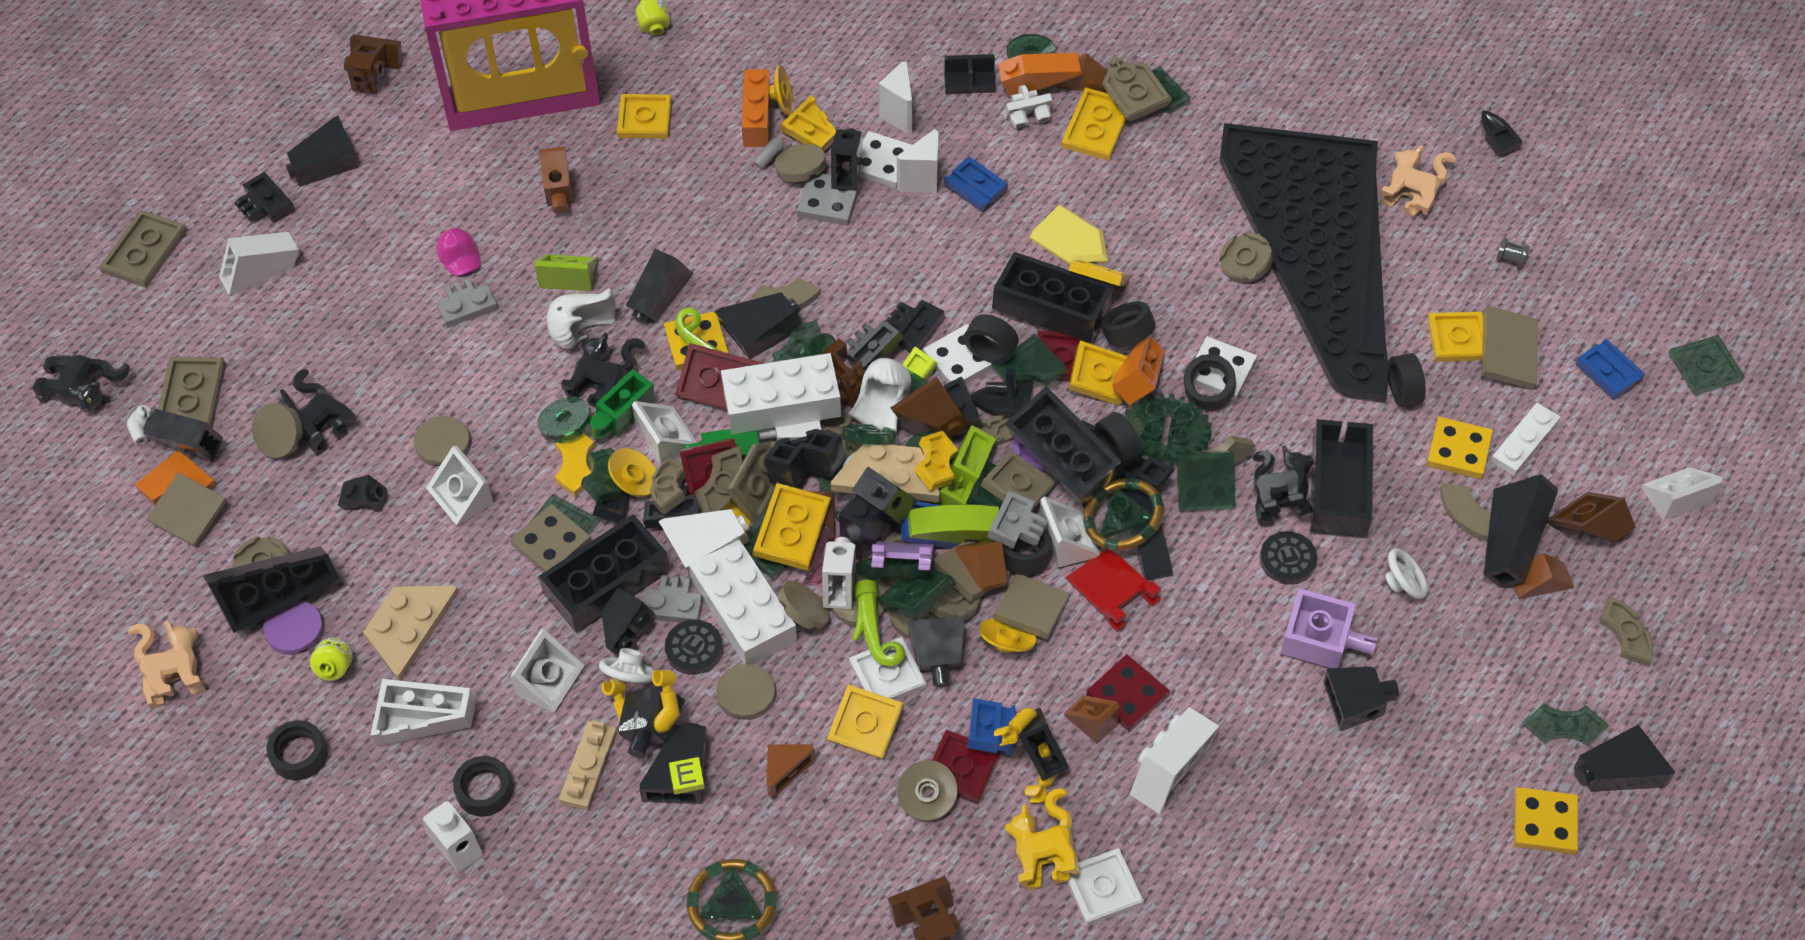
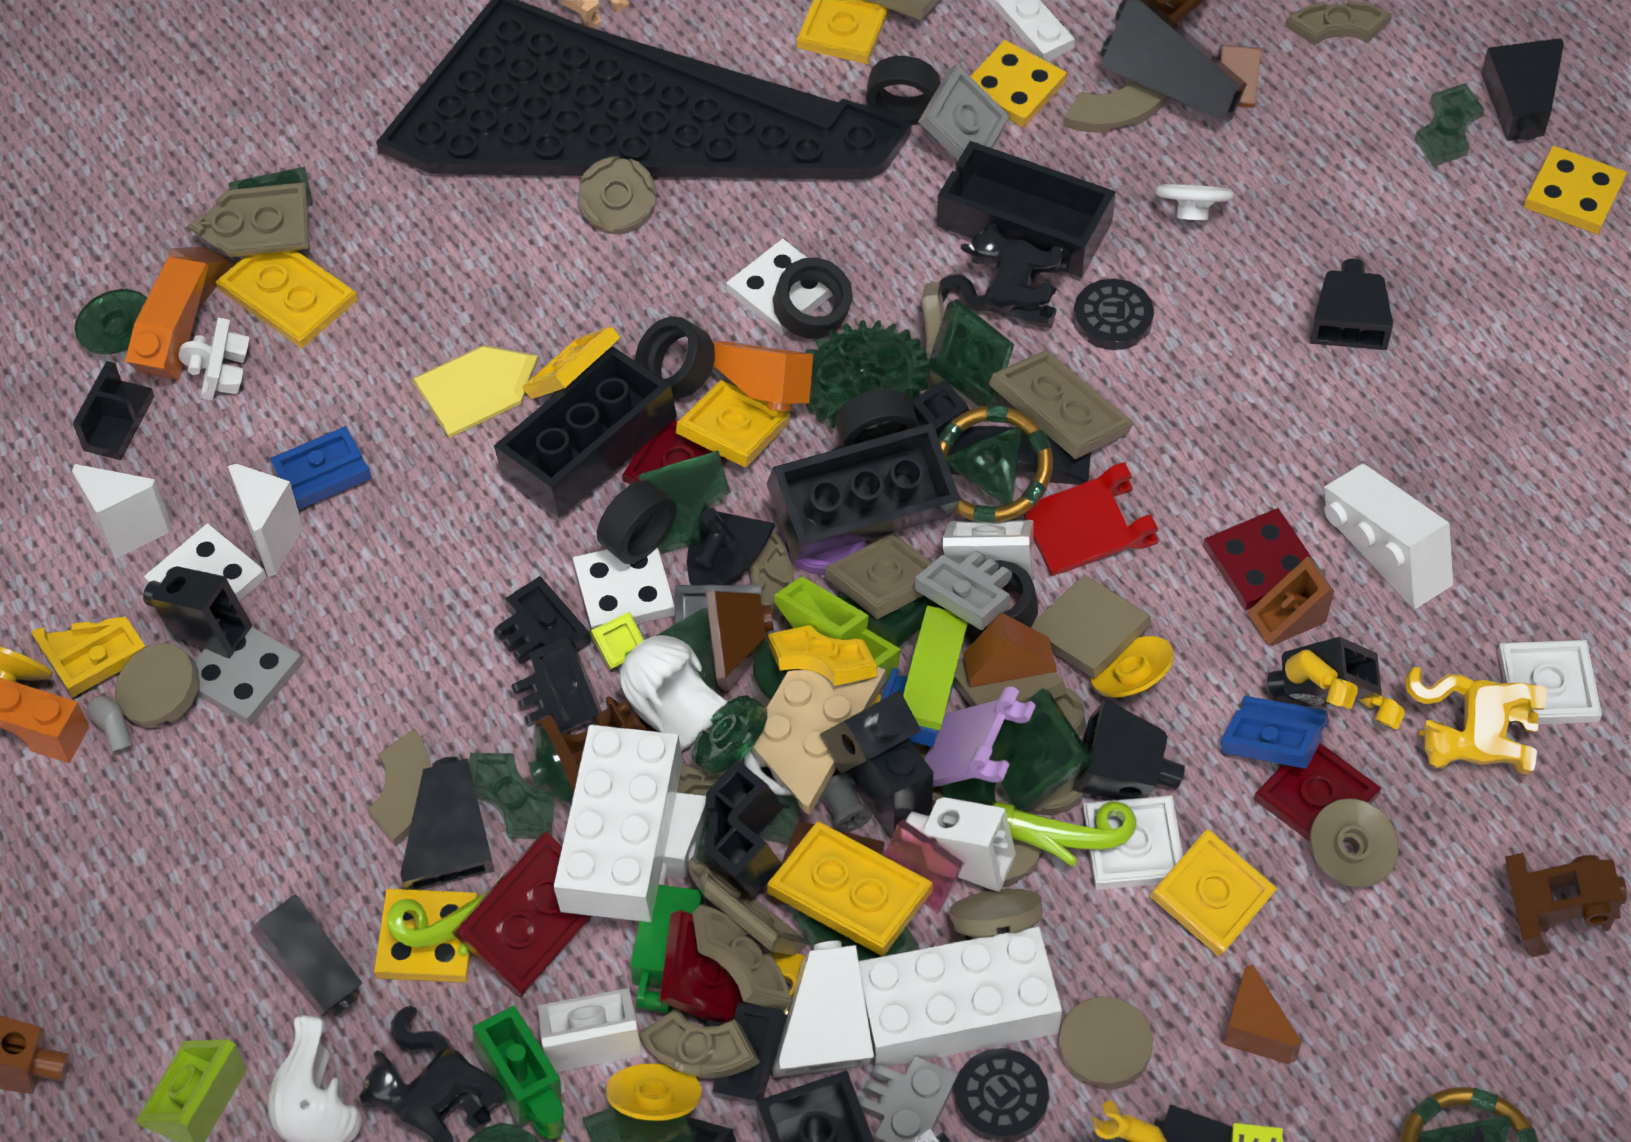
camera: 70 degrees left, 0 degrees up
(1195, 544) = (1061, 404): none -> dark tan tile
(1322, 630) = (1249, 308): lavender brick -> none
(1402, 422) = (962, 113): none -> light grey tile

